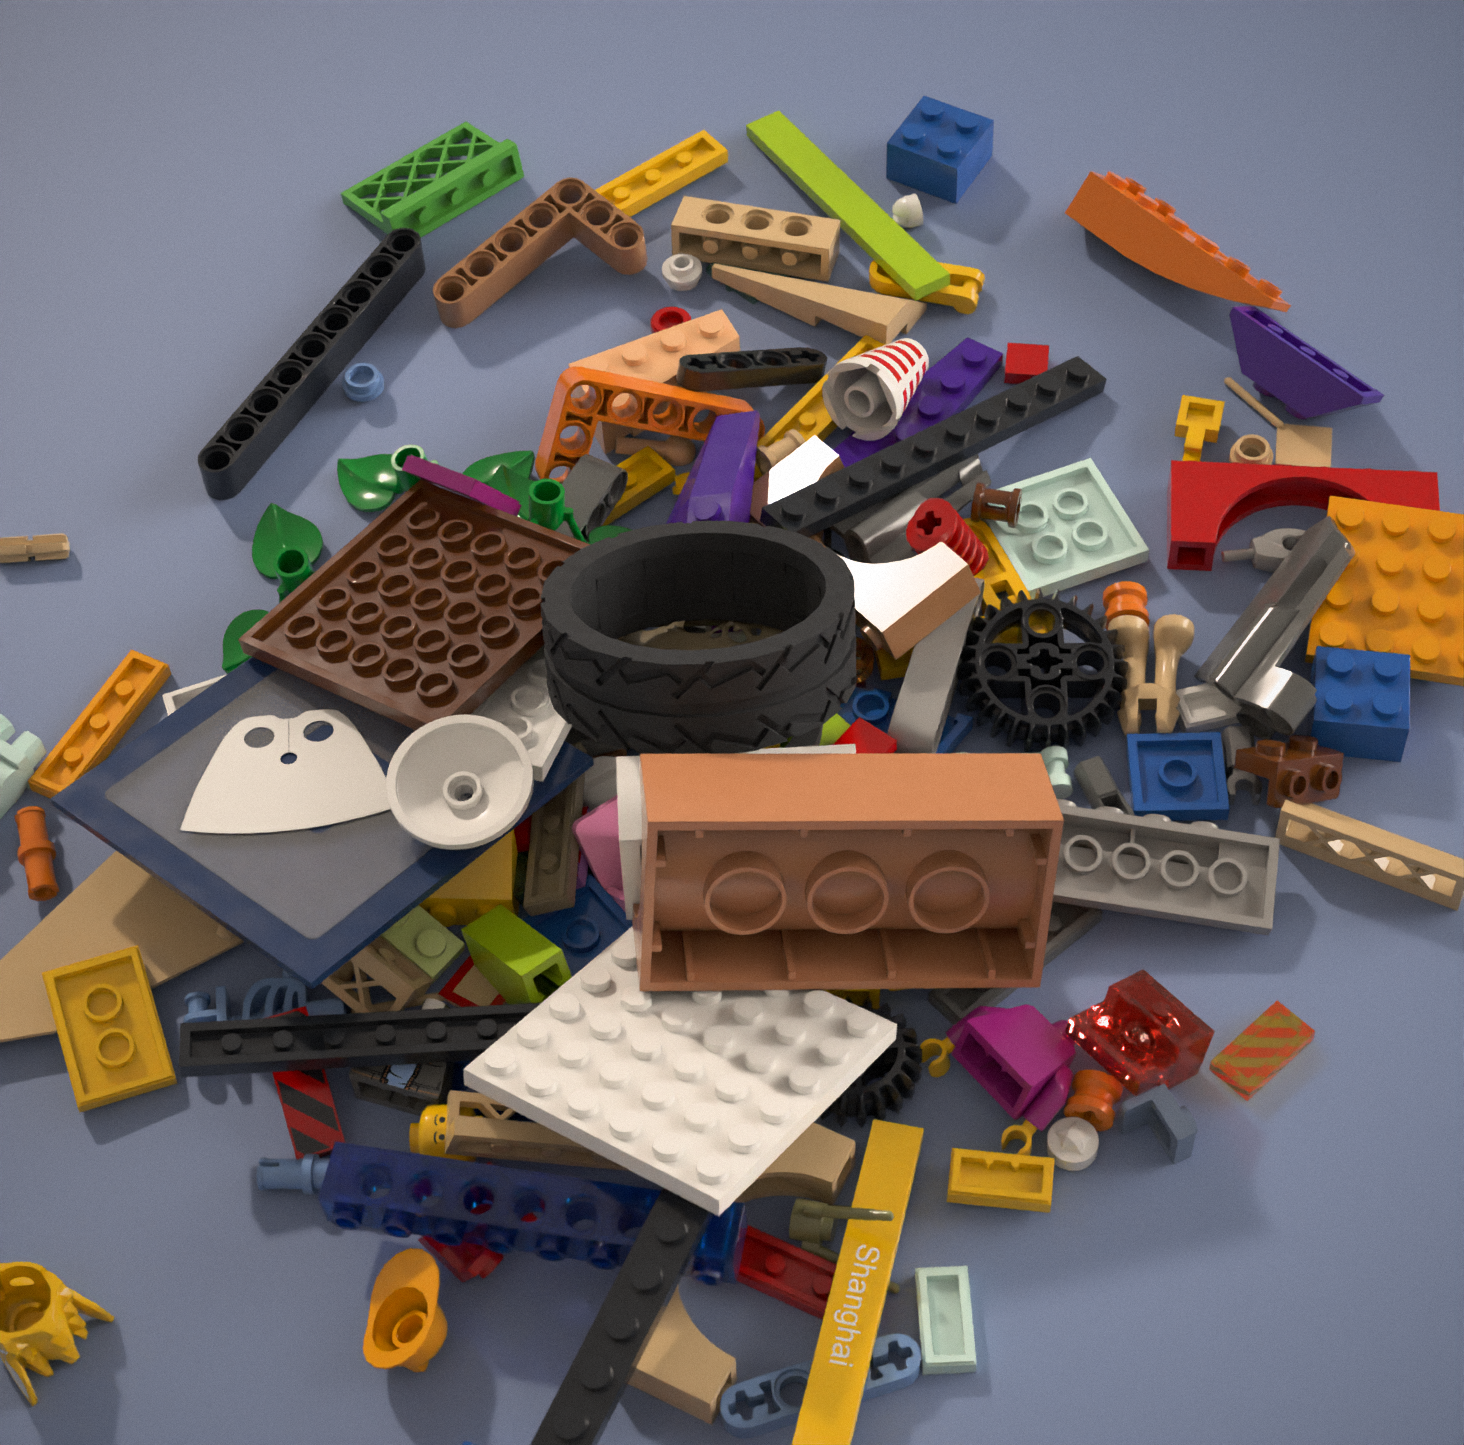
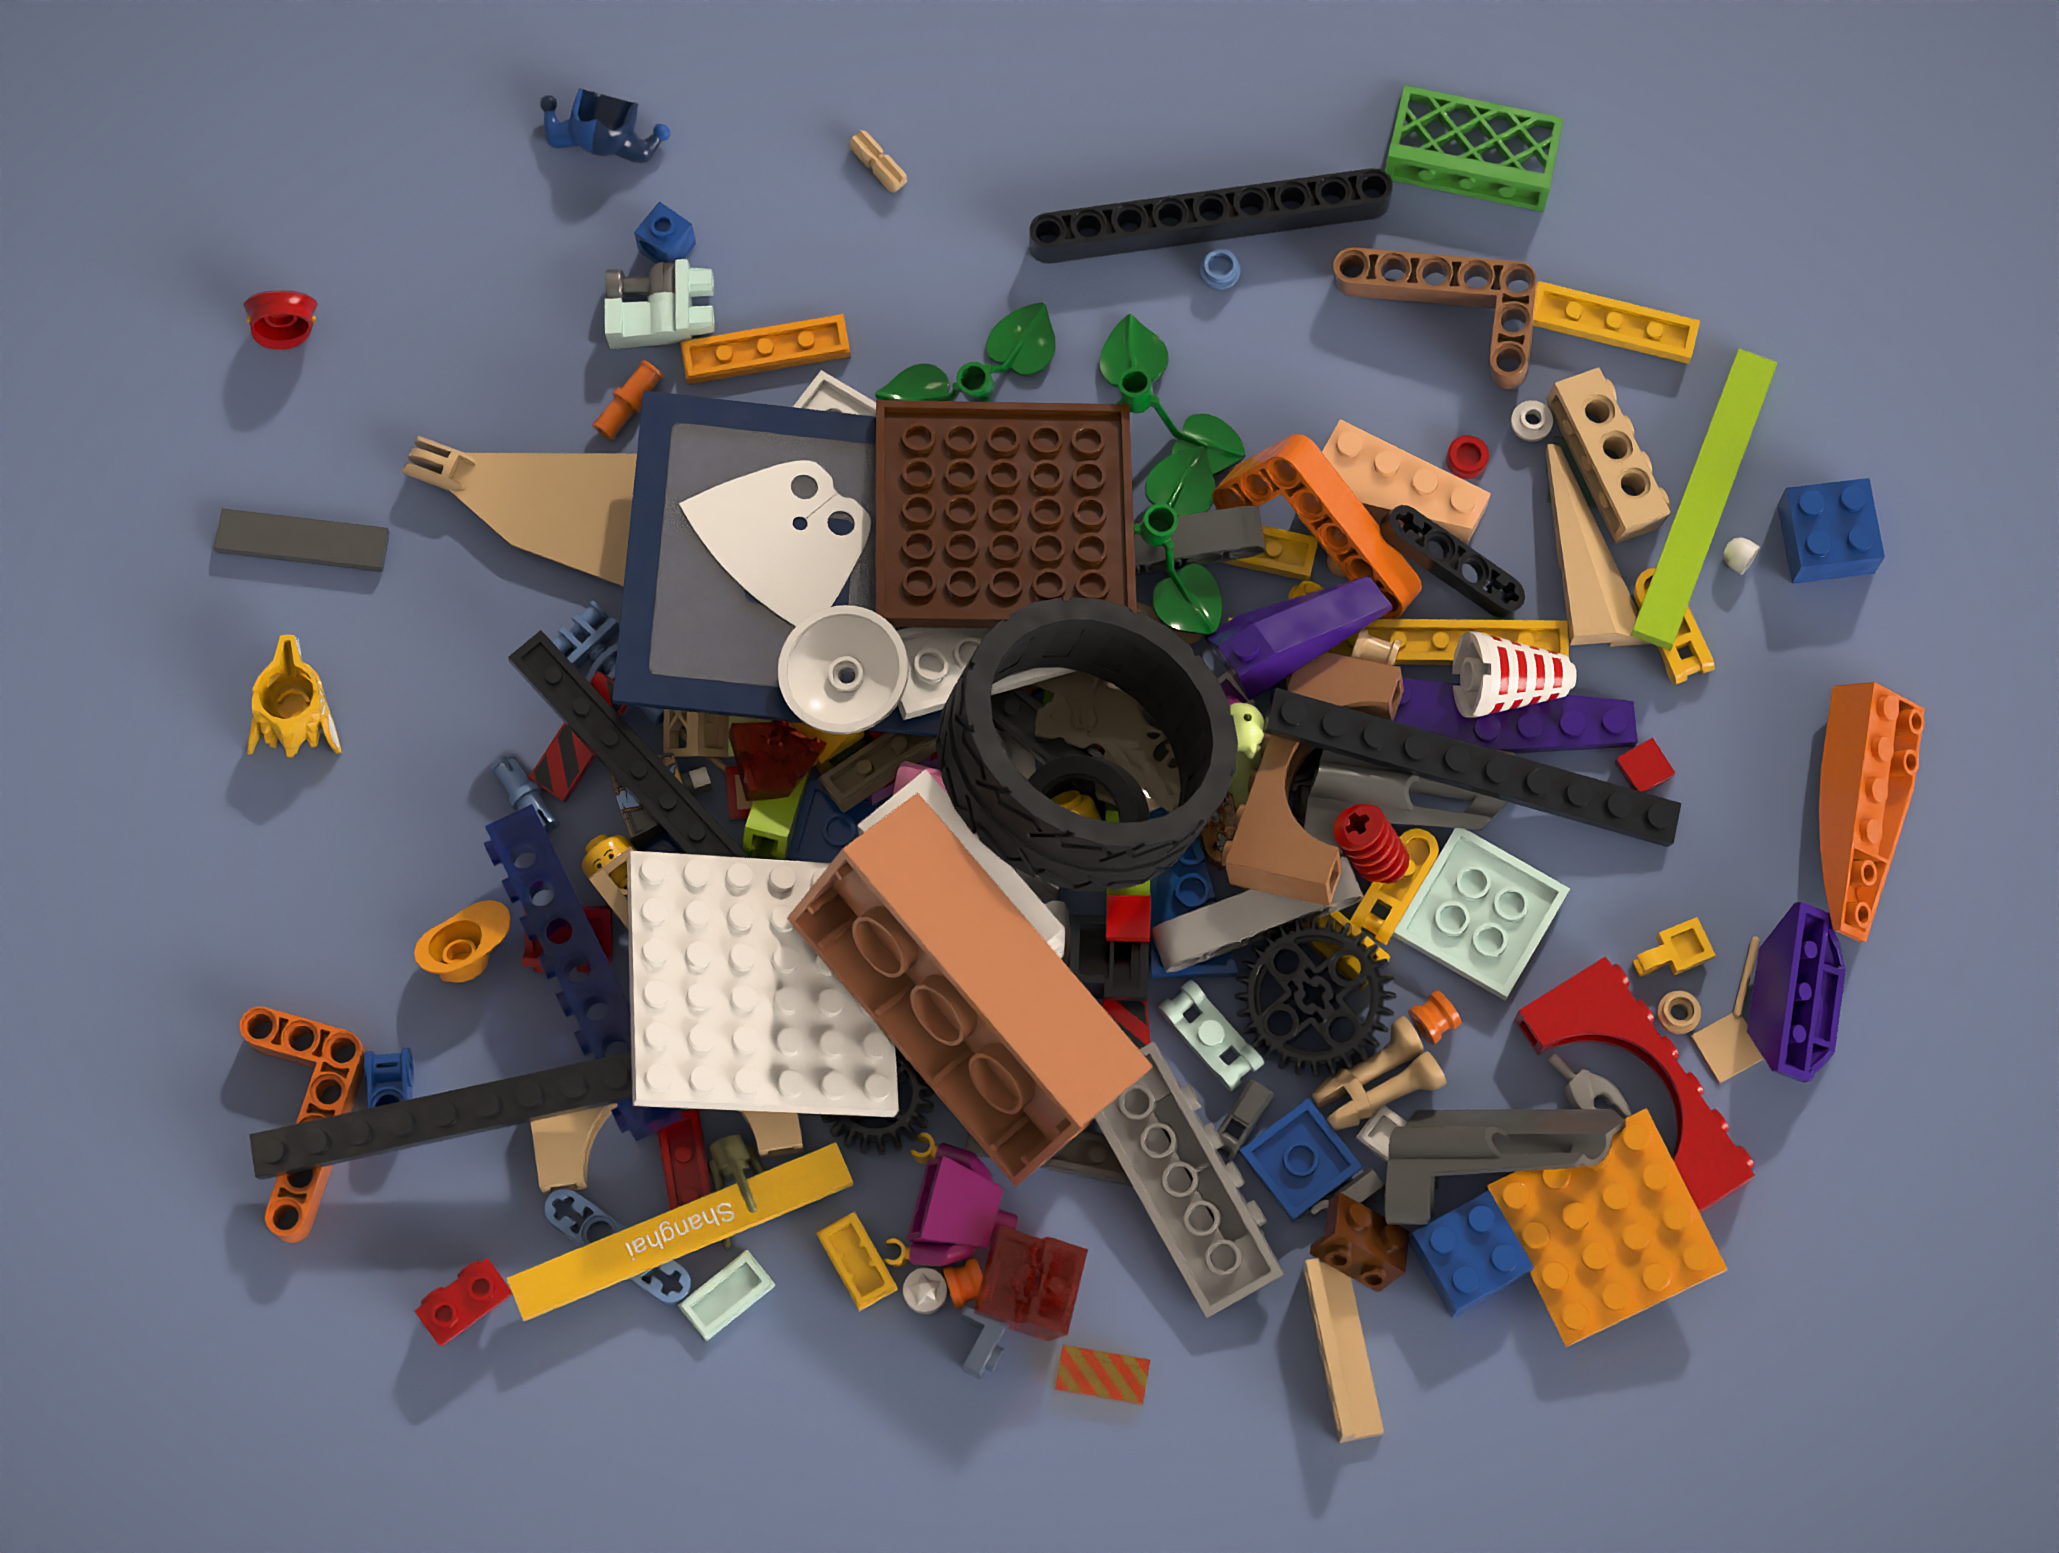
camera: 50 degrees right, 20 degrees up
(109, 1028) = (529, 570): yellow tile -> none
(460, 484) = (1142, 443): magenta tile -> none
(472, 926) = (772, 758): none -> clear red slope
(983, 510) = (1451, 851): reddish brown bush -> none

